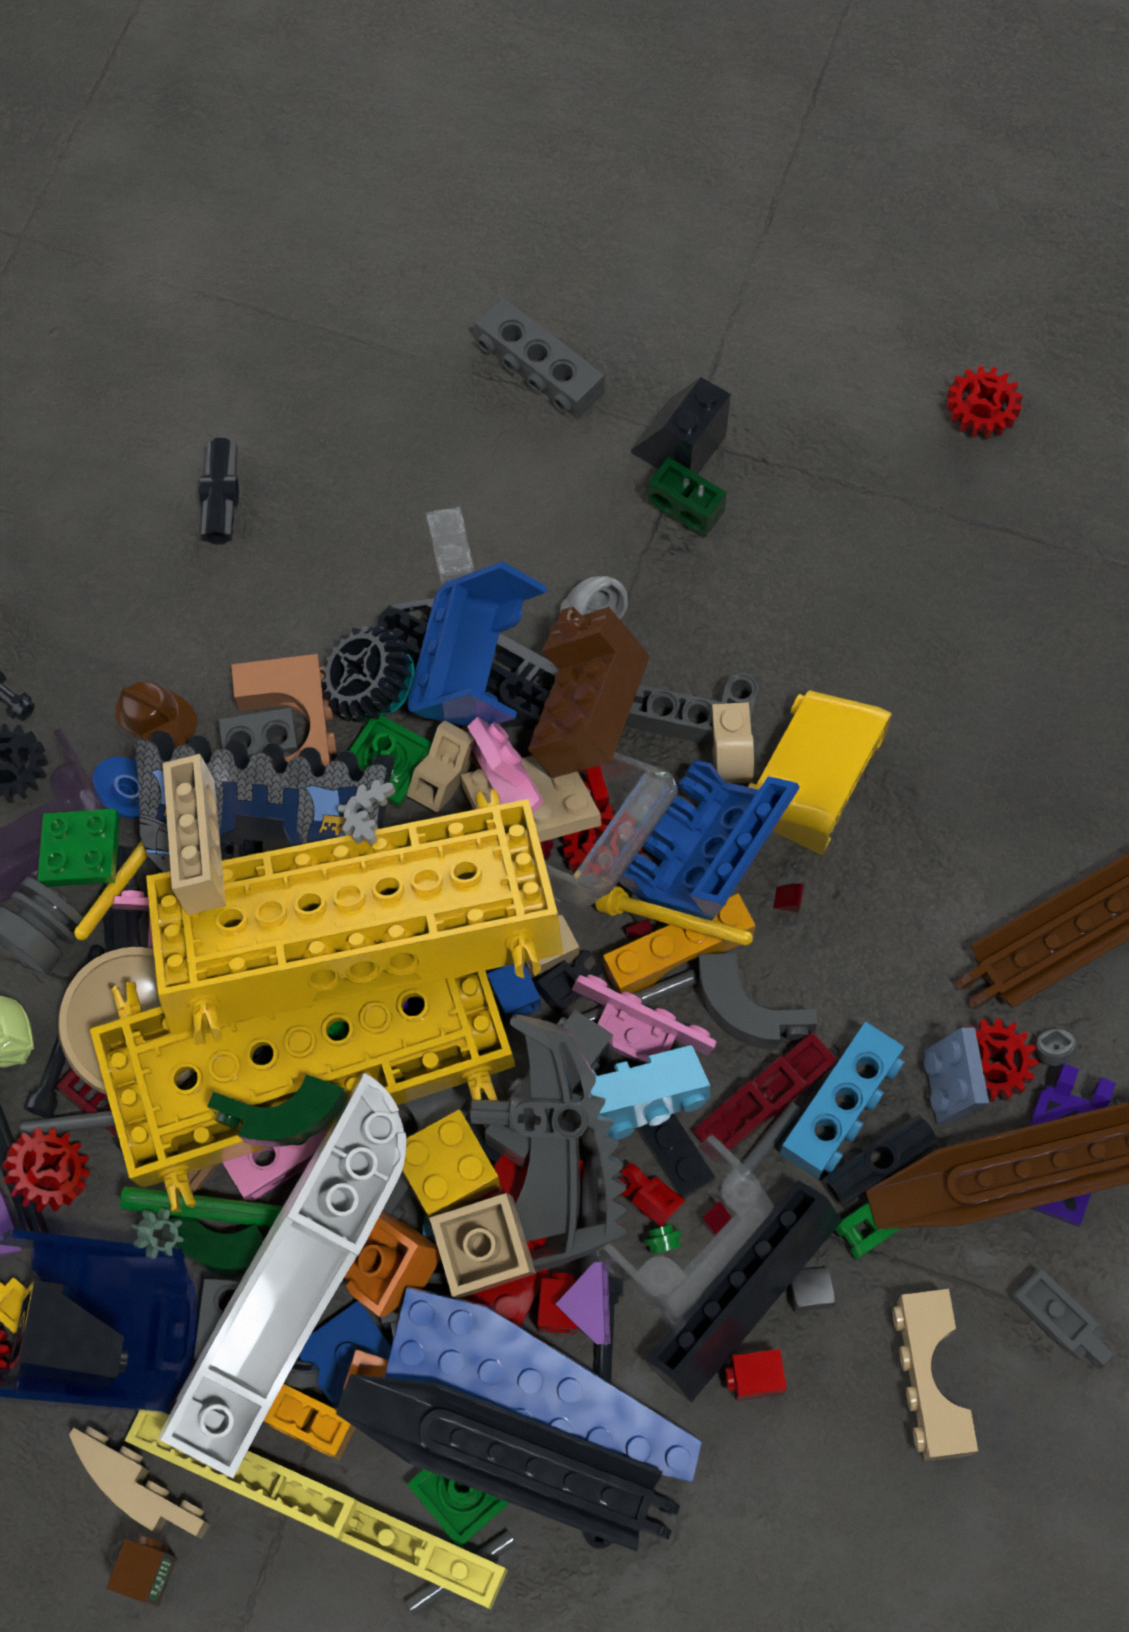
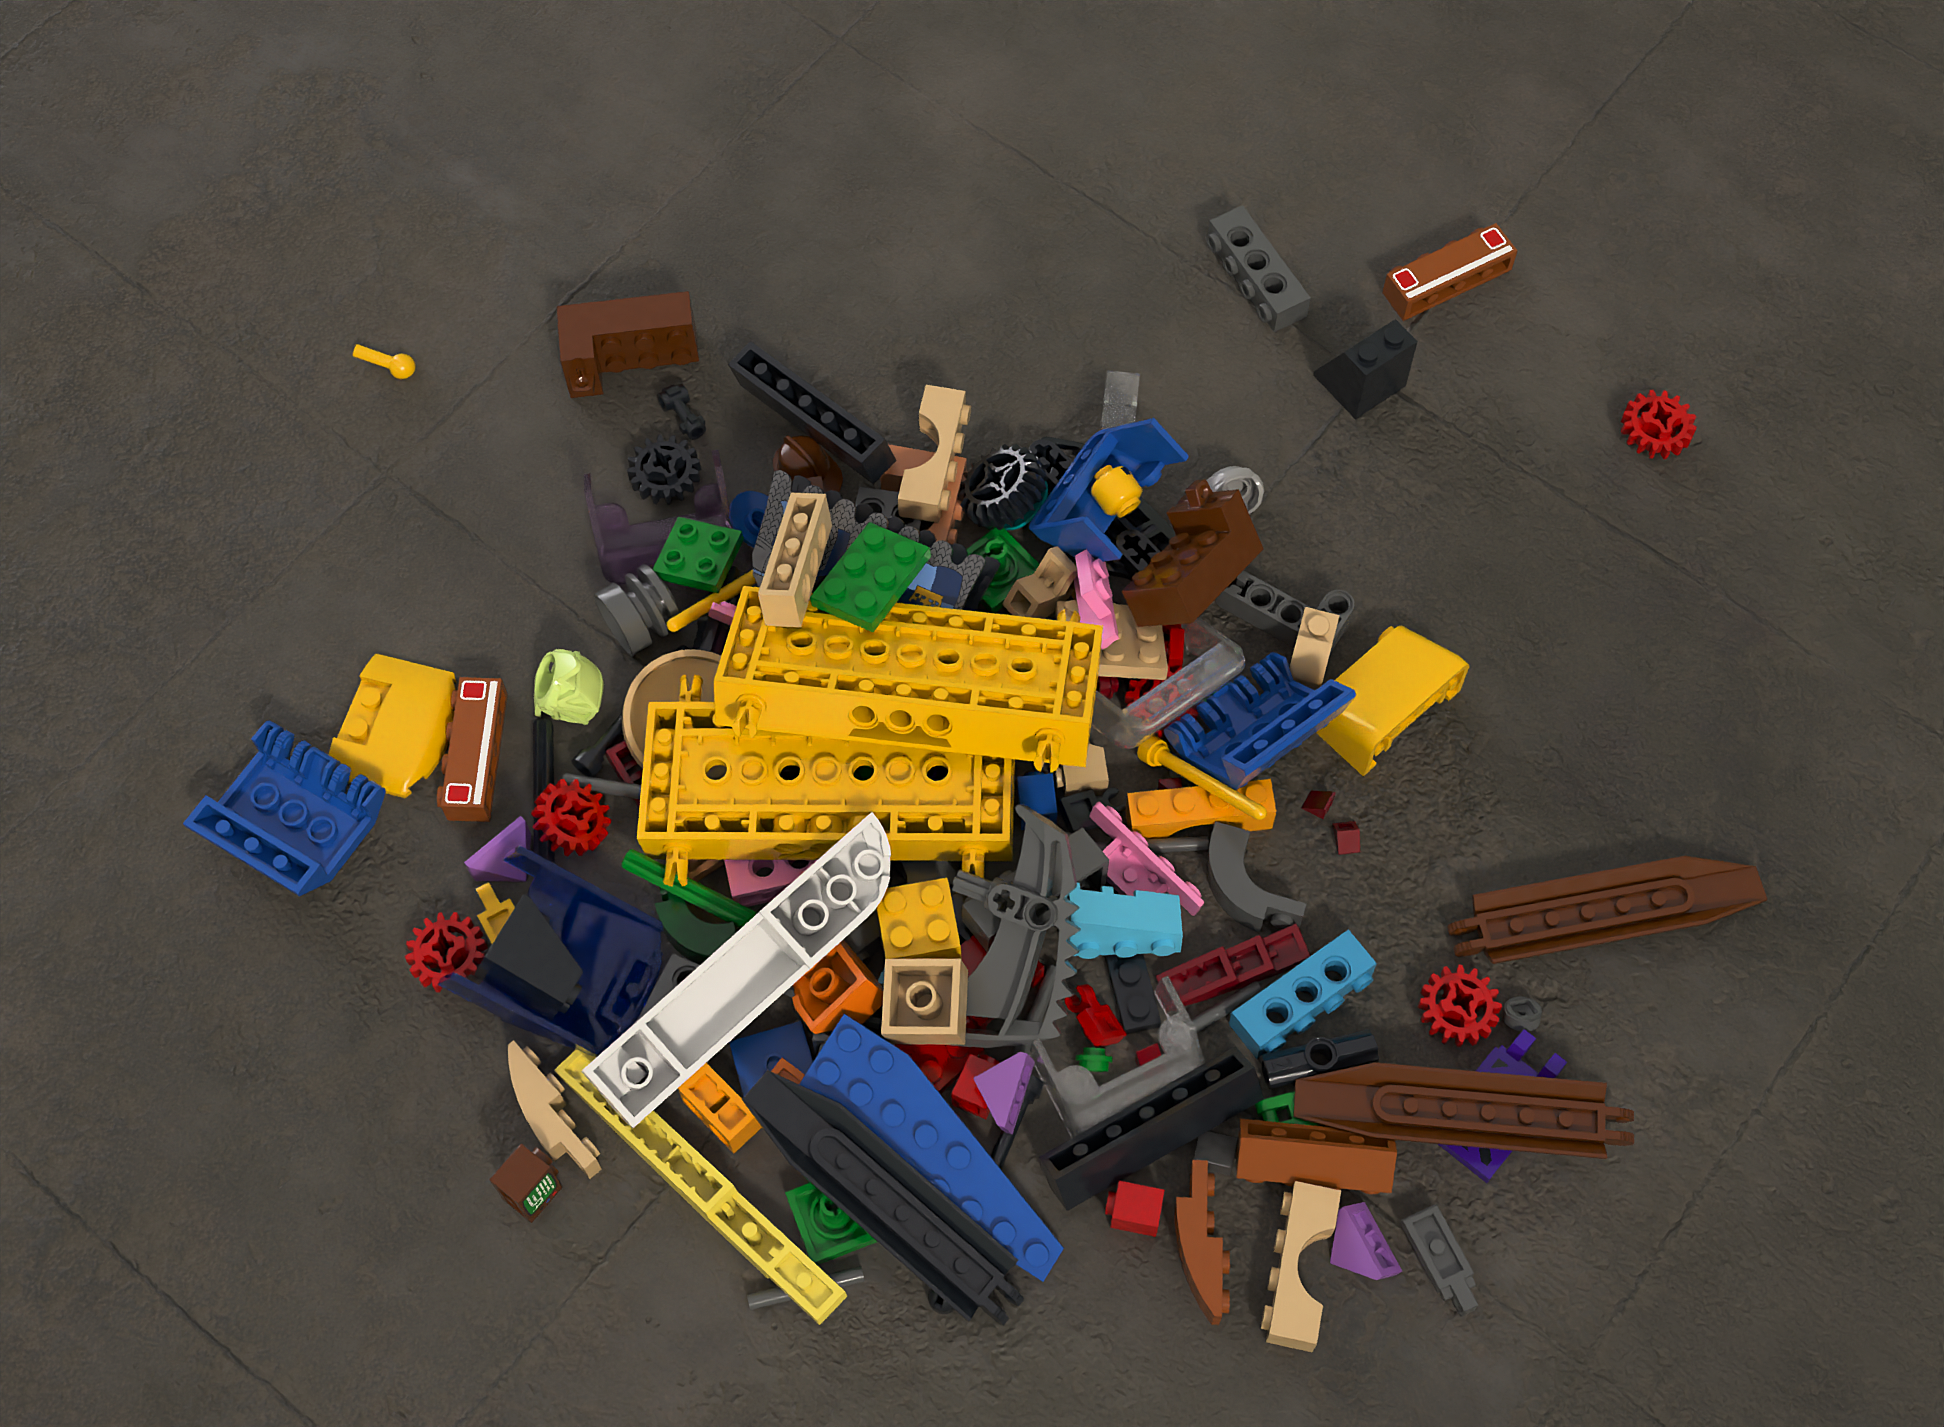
camera: 20 degrees right, 5 degrees down
(142, 655) = (812, 412): none -> black brick
(163, 1243) = (636, 901): sand green gear -> none
(219, 491) = (931, 298): black piece -> none
(276, 825) = (870, 577): none -> green plate
(285, 1124) = (788, 833): dark green arch -> none
(288, 700) = (924, 488): none -> tan arch
(302, 1375) = (726, 1065): dark grey tile -> none
(361, 821) = (945, 599): light grey animal -> none
(484, 643) = (1116, 490): none -> yellow head
(686, 497) = (1348, 424): dark green brick -> none
(729, 303) = (1449, 271): none -> dark orange brick
(828, 923) = (1347, 837): none -> dark red piece
(837, 1403) = (1200, 1255): none -> dark orange slope
(909, 1263) = (1314, 1156): none -> dark orange brick
(955, 1076) = (1415, 1005): sand blue plate -> none
(983, 1333) = (1361, 1245): none -> medium lavender slope

